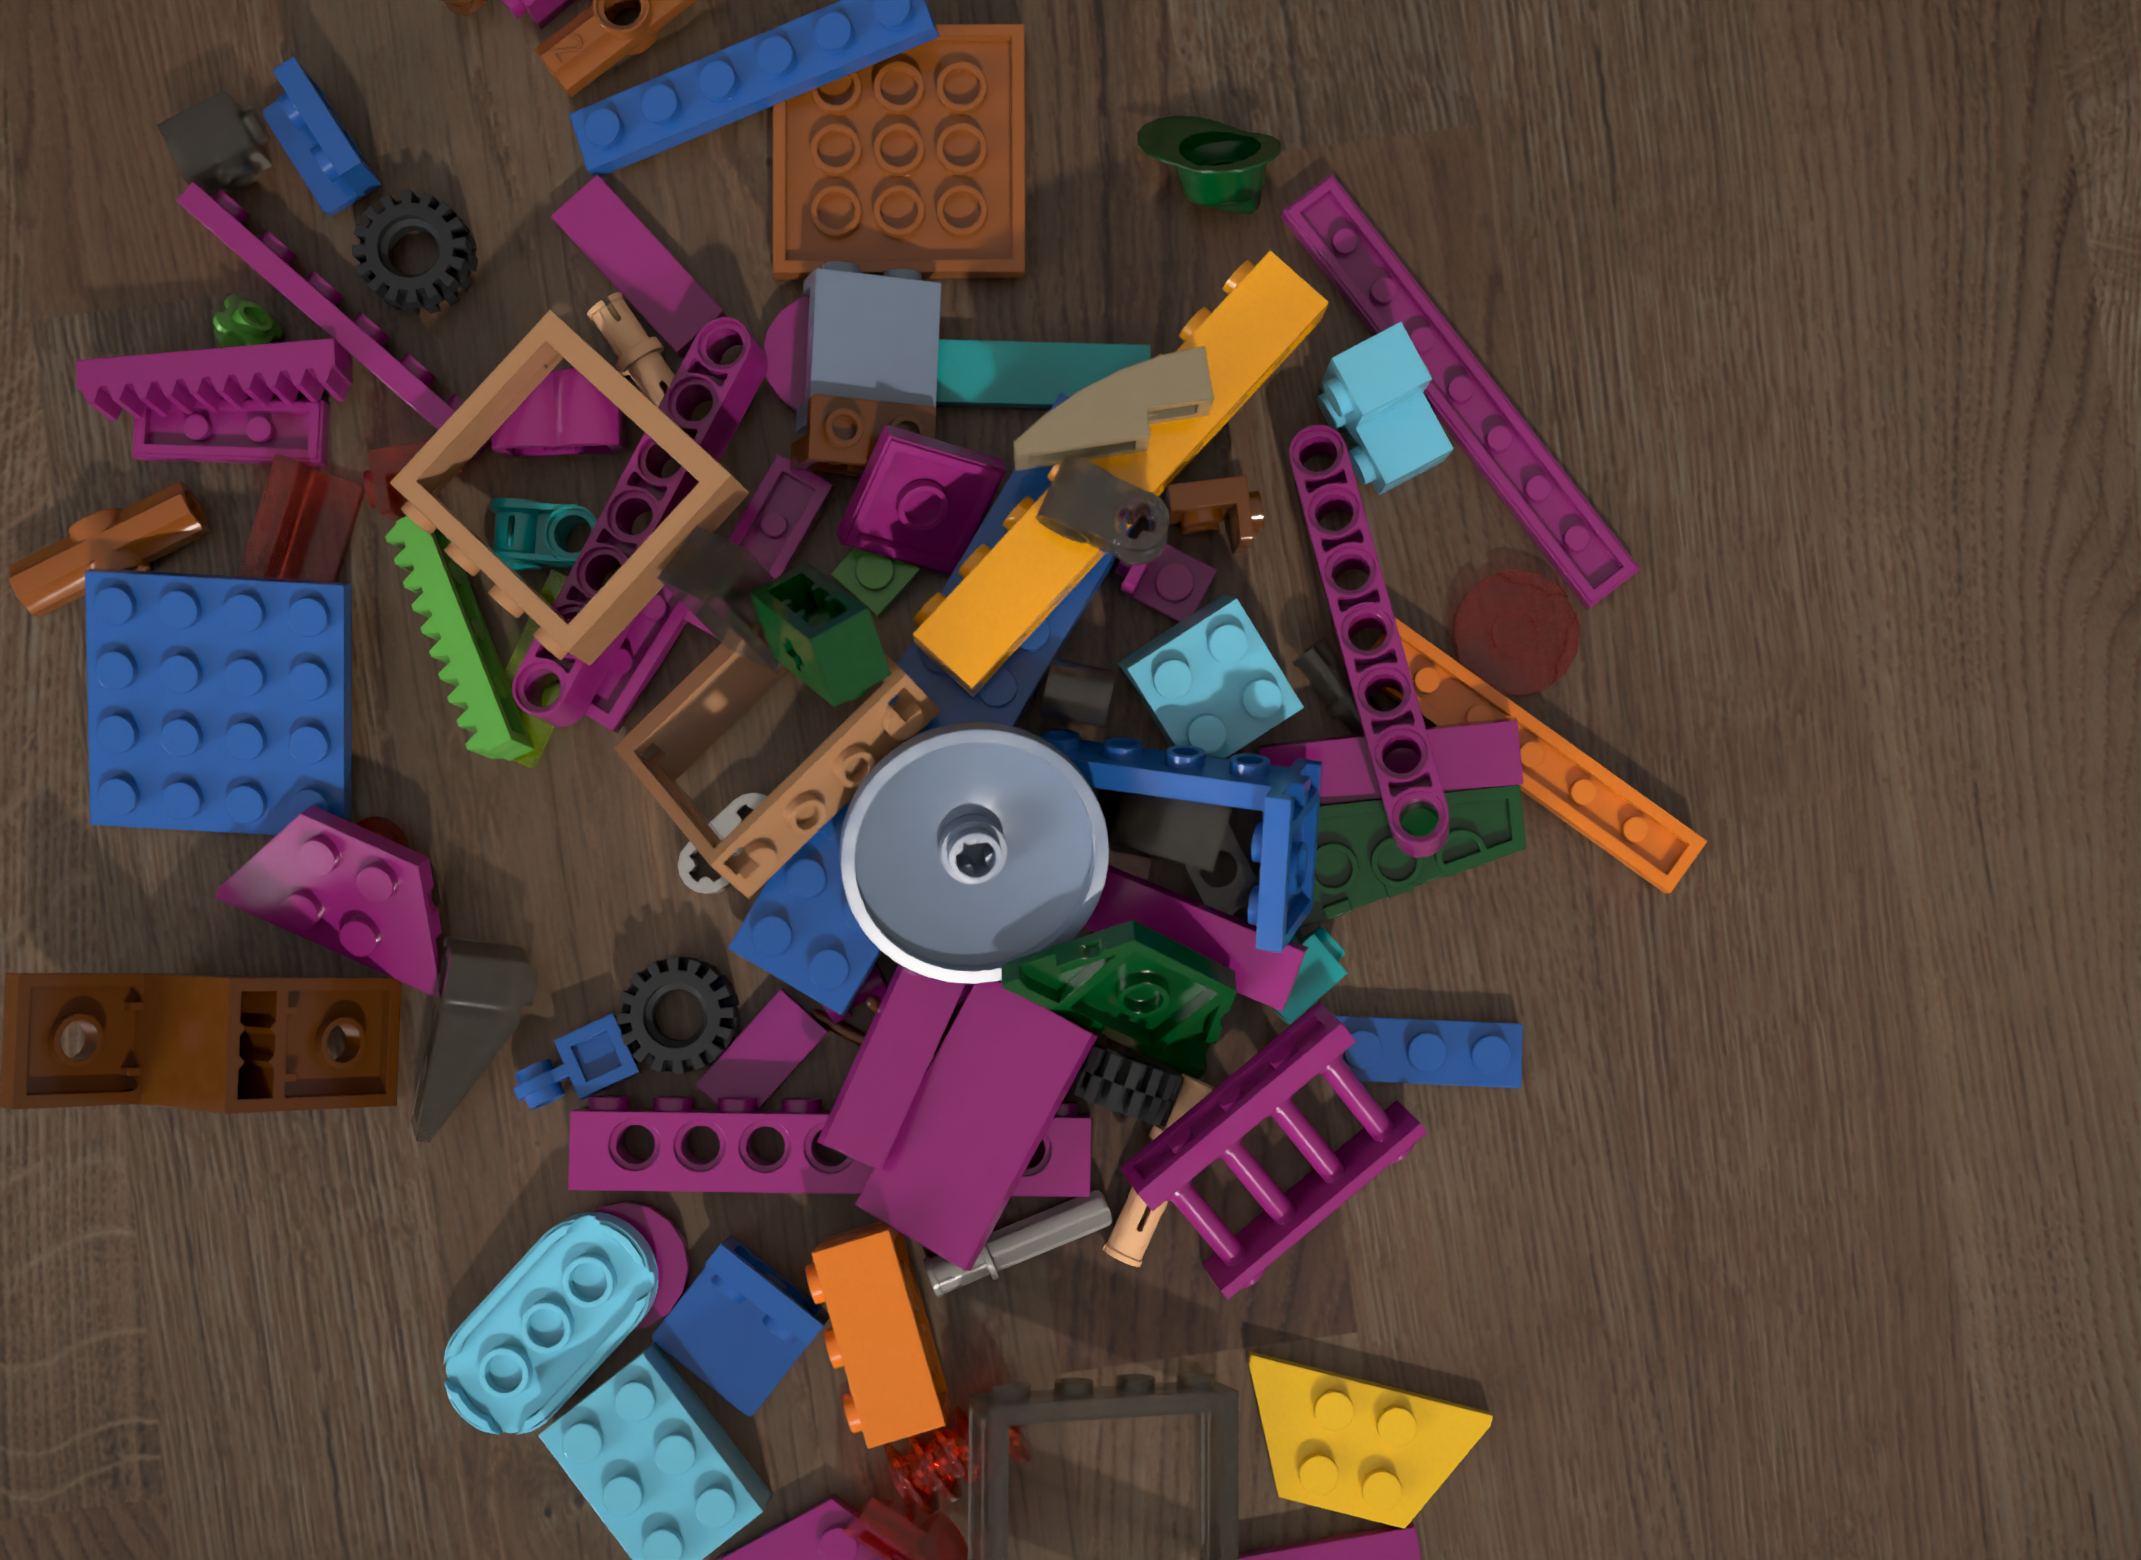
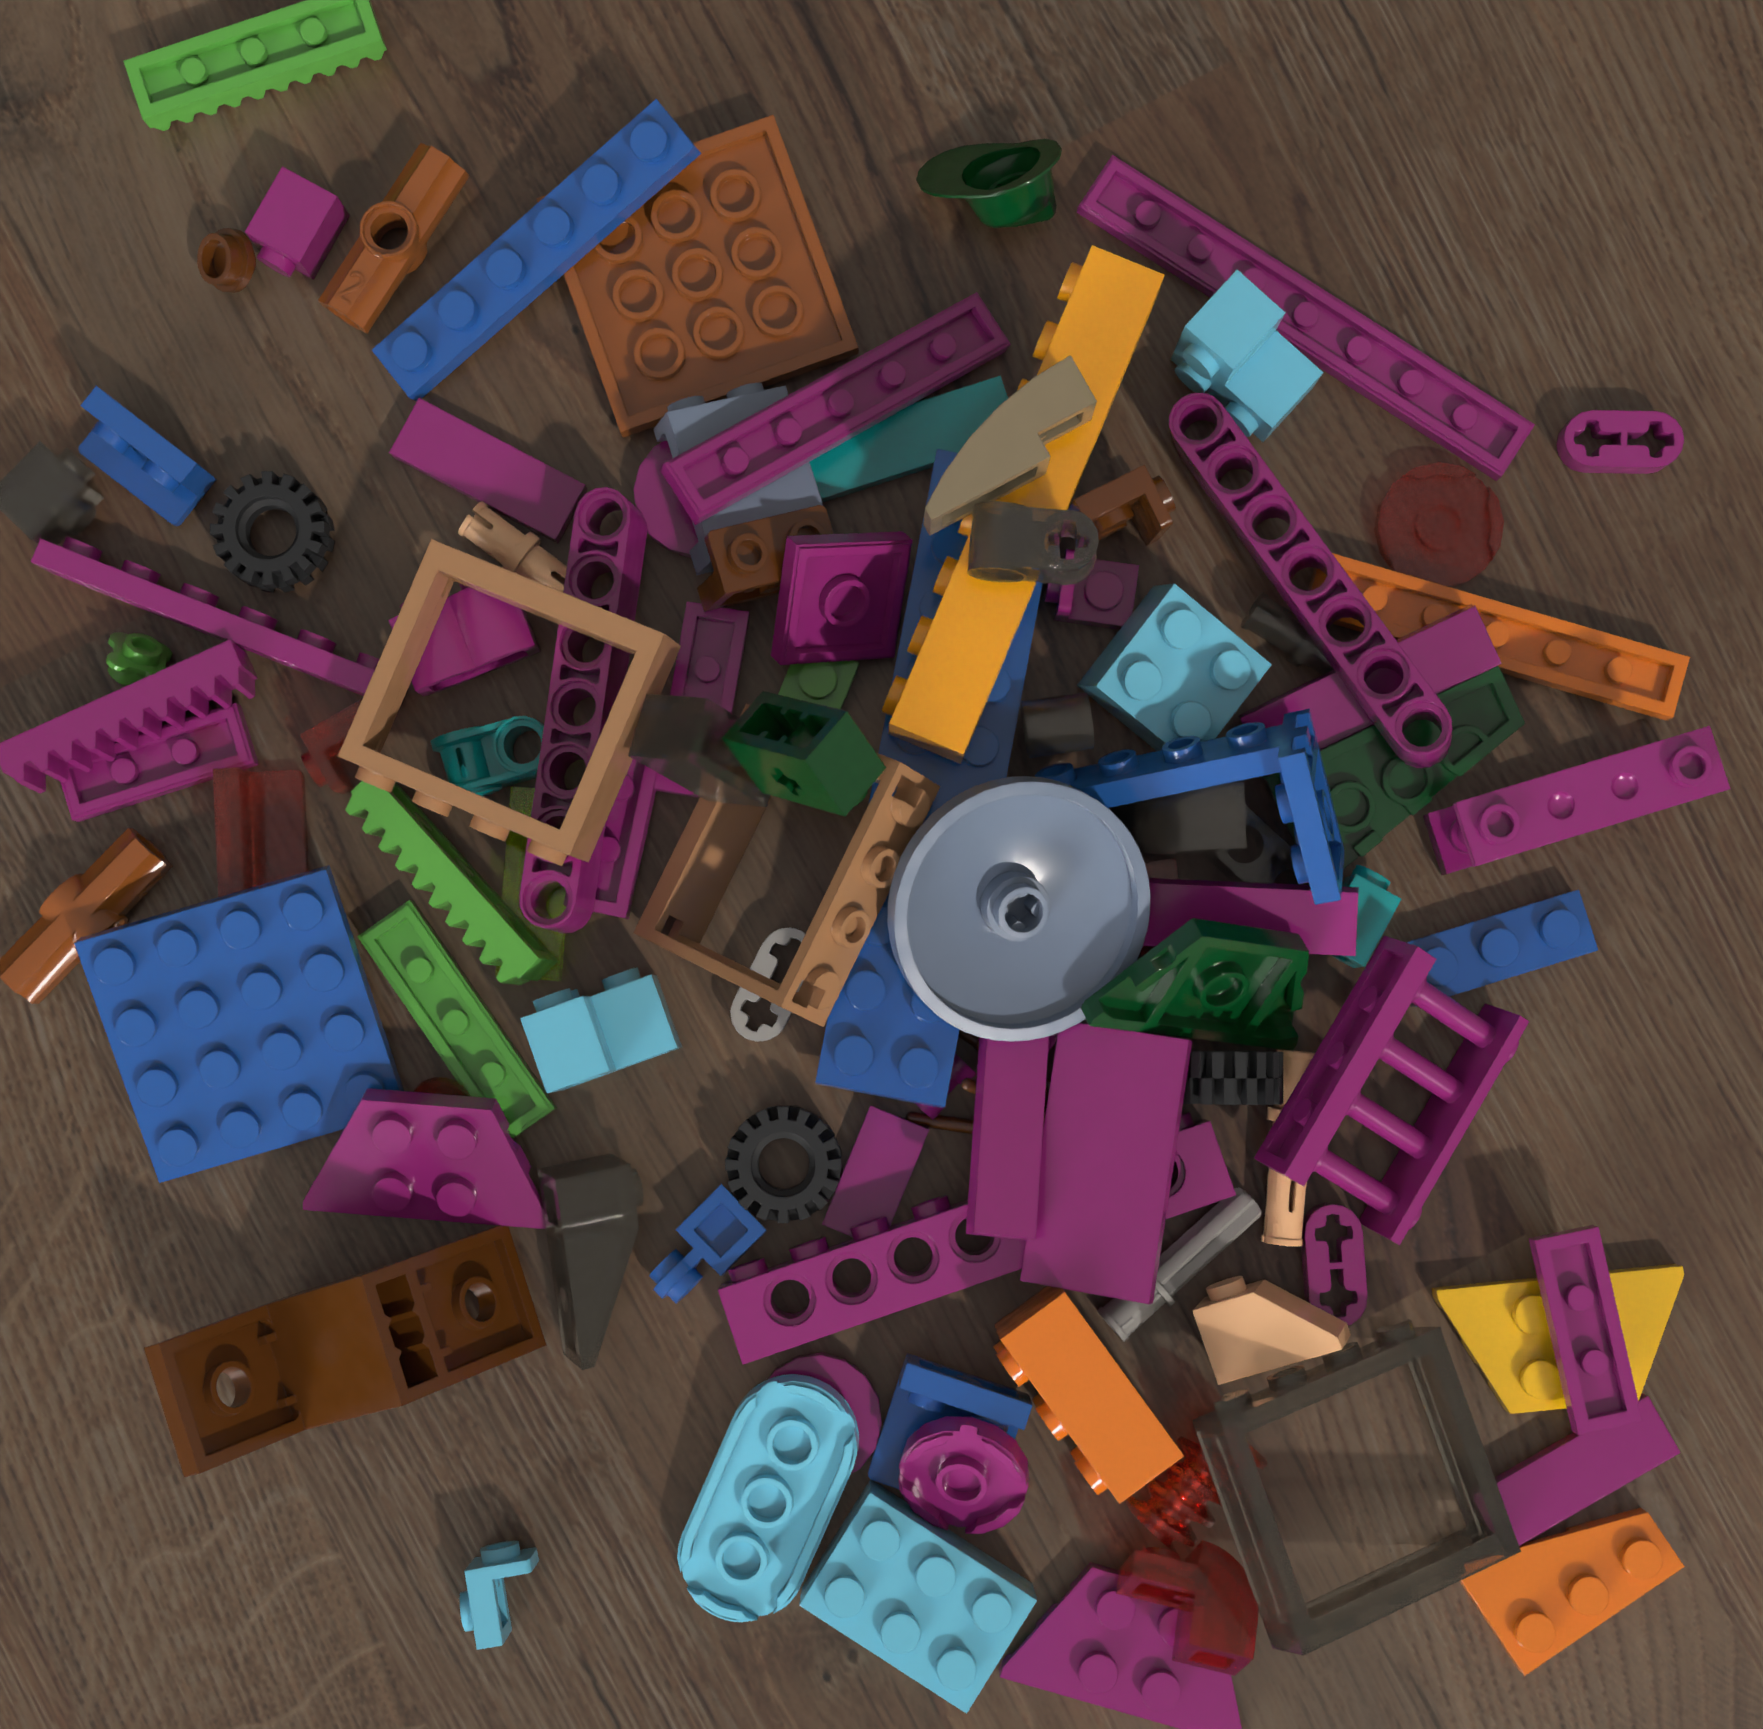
camera: 20 degrees left, 0 degrees up
(252, 1325) = (485, 1602): none -> medium azure bracket
(423, 768) = (454, 1016): none -> bright green tile
(531, 830) = (599, 1033): none -> medium azure brick
(738, 1368) = (963, 1474): none -> magenta tile
(979, 320) = (834, 408): none -> magenta tile
(1071, 1332) = (1262, 1328): none -> light nougat slope
(1178, 1300) = (1349, 1261): none -> magenta beam
(1375, 1443) = (1585, 1329): none -> magenta plate
(1546, 938) = (1576, 800): none -> magenta fence
(1721, 600) = (1620, 427): none -> magenta beam

